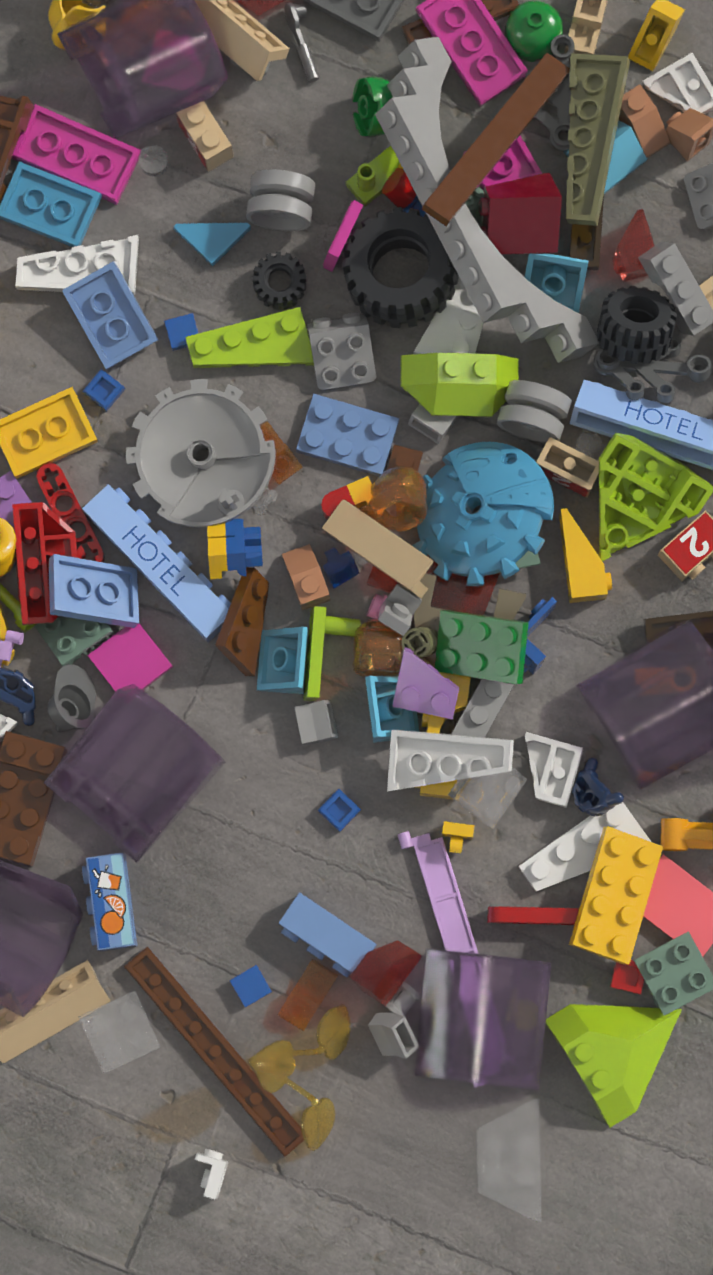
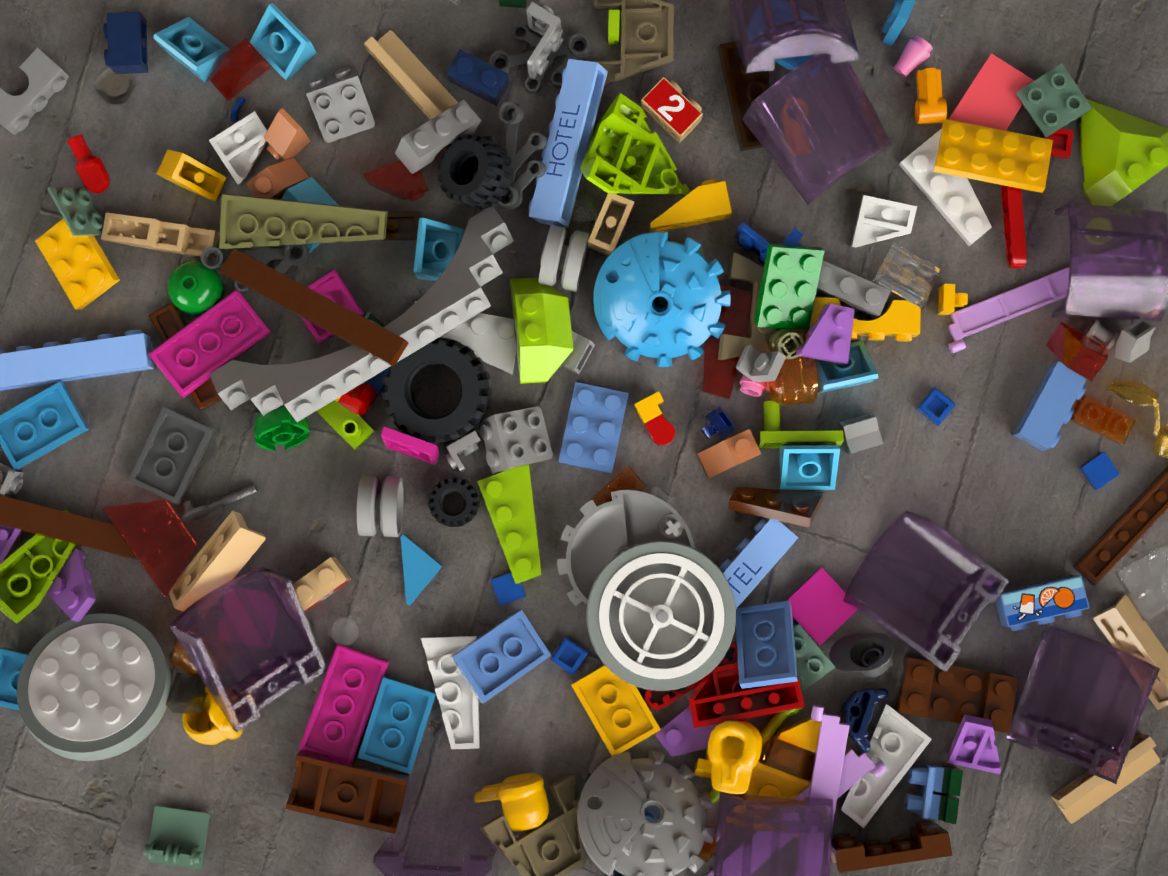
camera: 95 degrees left, 5 degrees up
(135, 478) = (661, 615): none -> white wheel
(233, 548) = (716, 524): blue hips -> none
(339, 297) = (465, 445): none -> light grey bracket
(379, 546) = (704, 386): tan panel -> none
(404, 489) = (648, 373): clear orange piece -> none
(405, 457) = (615, 374): reddish brown plate -> none
(439, 758) = (891, 319): white wing -> none
(522, 215) = (382, 278): dark red slope -> none
(591, 794) = (904, 183): dark blue piece -> none

